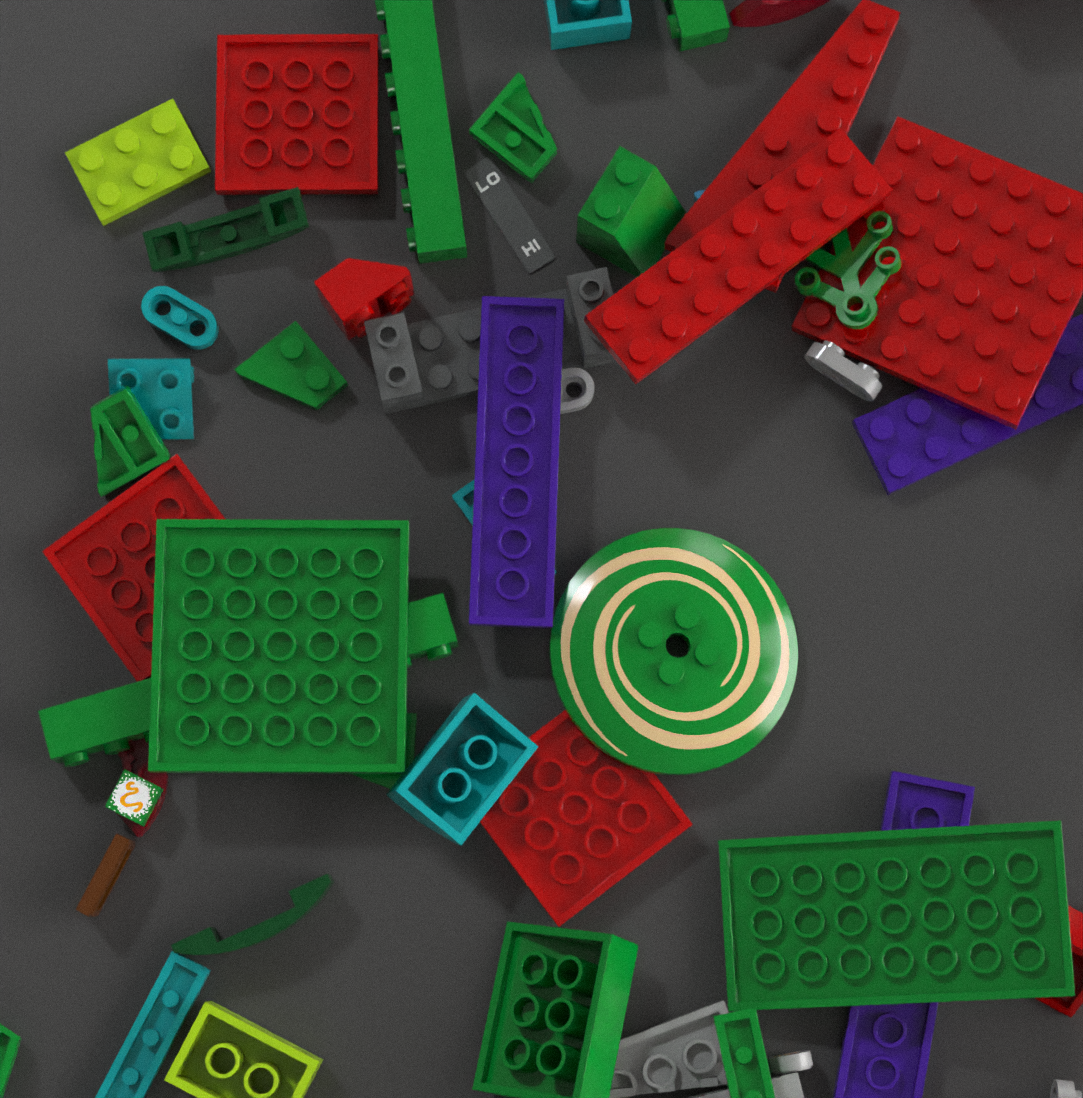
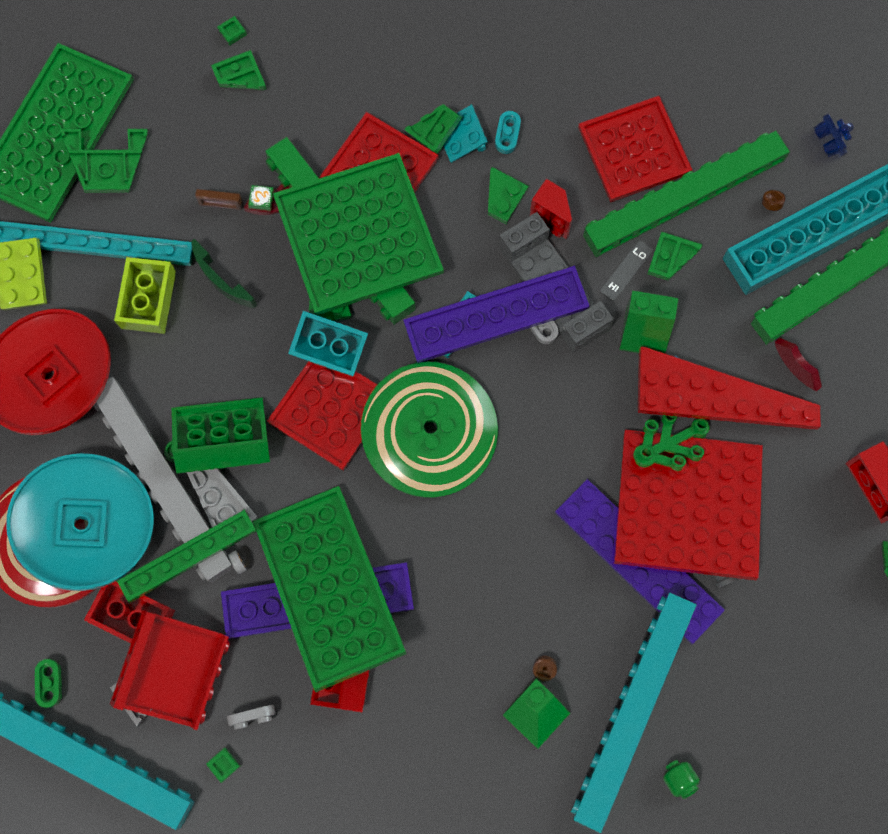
camera: 75 degrees right, 5 degrees down
(138, 162) = (579, 85): lime plate -> none
(227, 234) = (558, 138): dark green slope -> none
(737, 256) = (648, 383): red plate -> none
(857, 379) = (614, 455): light grey plate -> none

